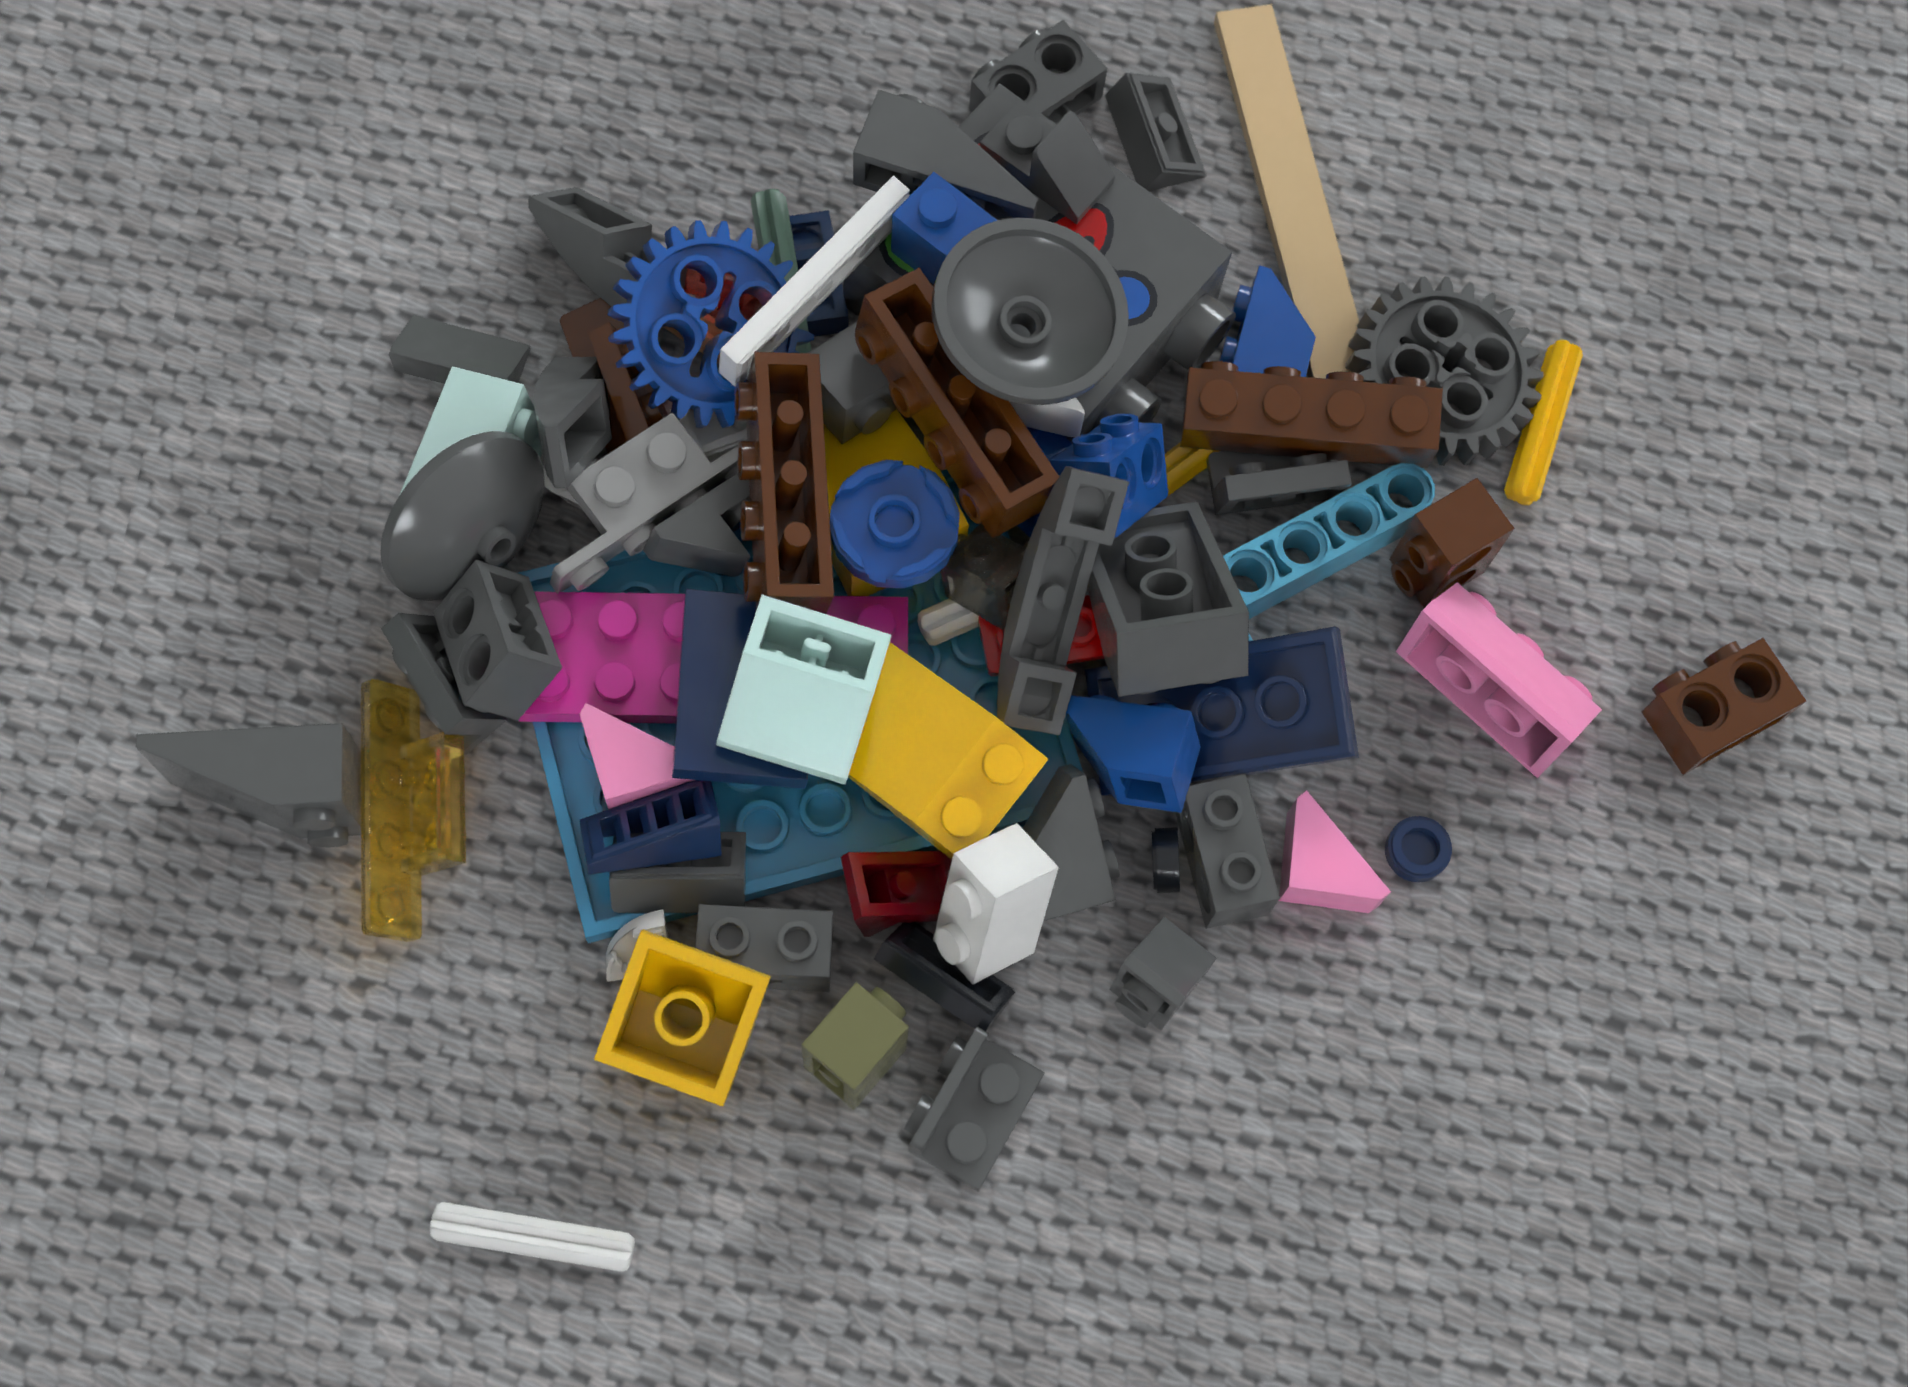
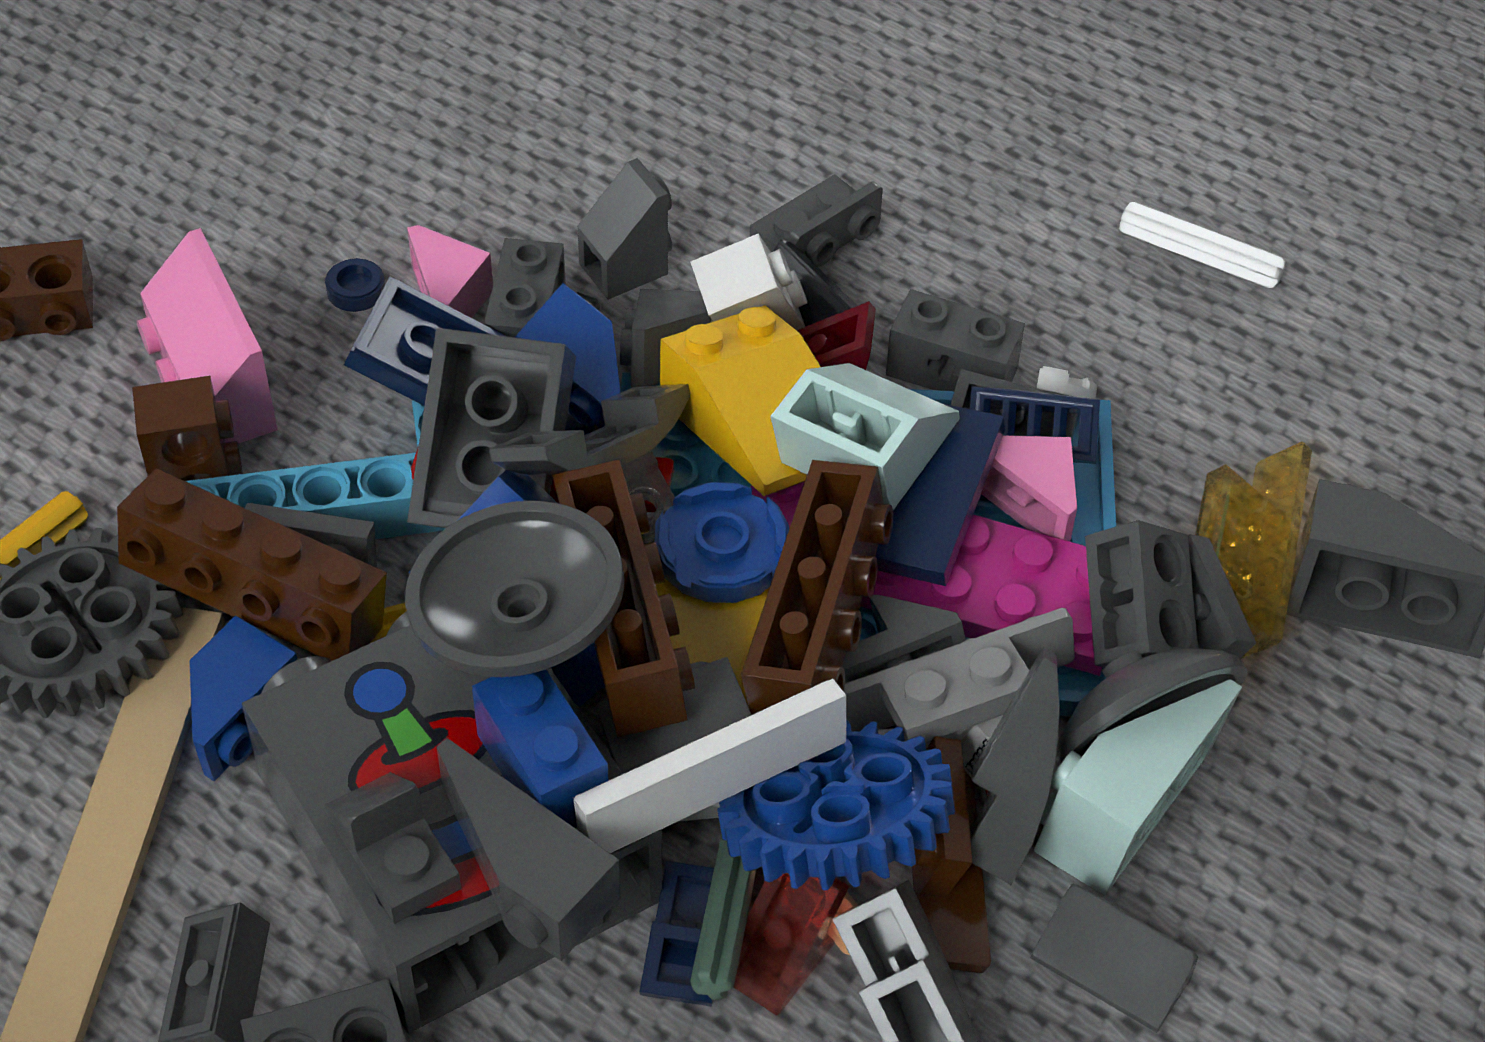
camera: 155 degrees left, 20 degrees down
(682, 1018) = (1057, 298): yellow slope -> none
(856, 1043) = (903, 246): olive brick -> none

